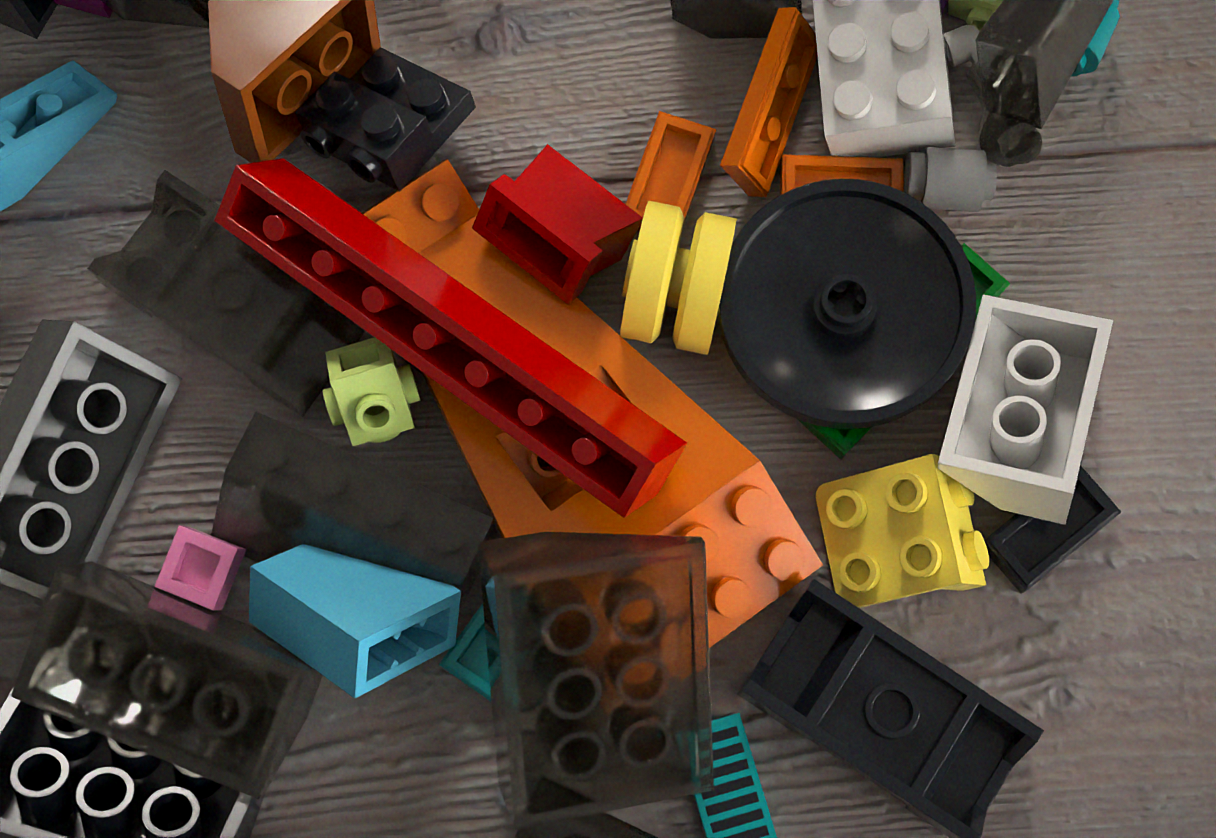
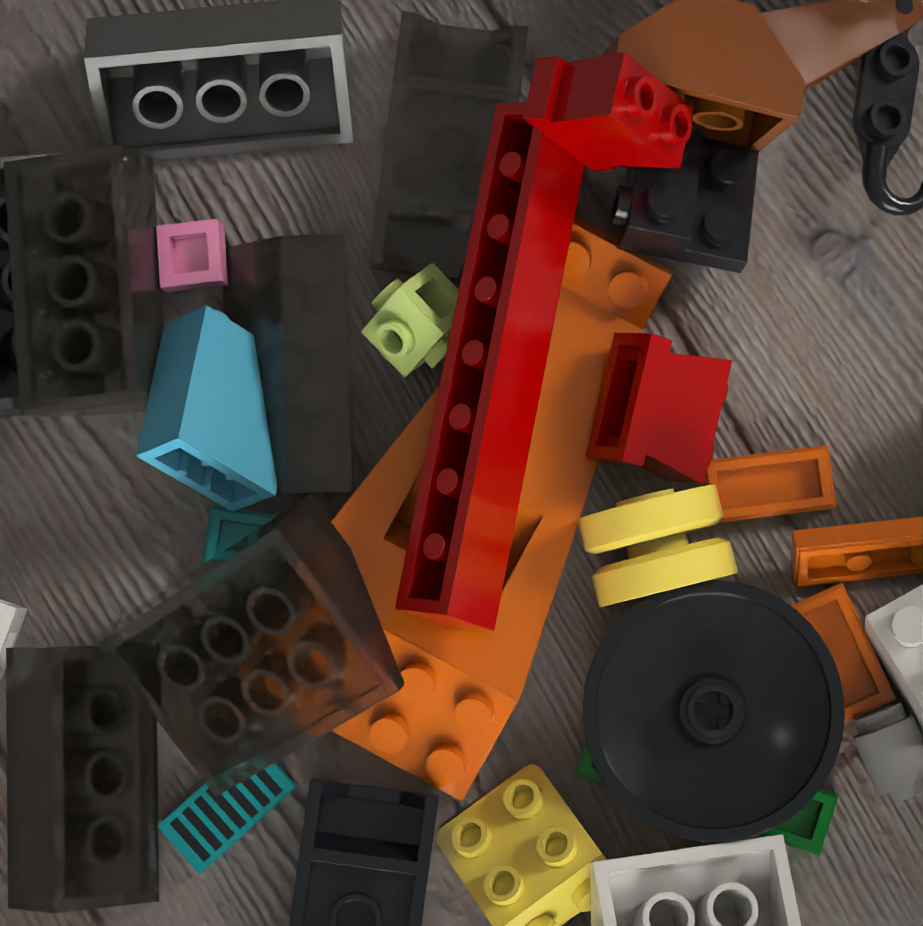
camera: 65 degrees right, 10 degrees up
(274, 117) = (608, 112): none -> red hips

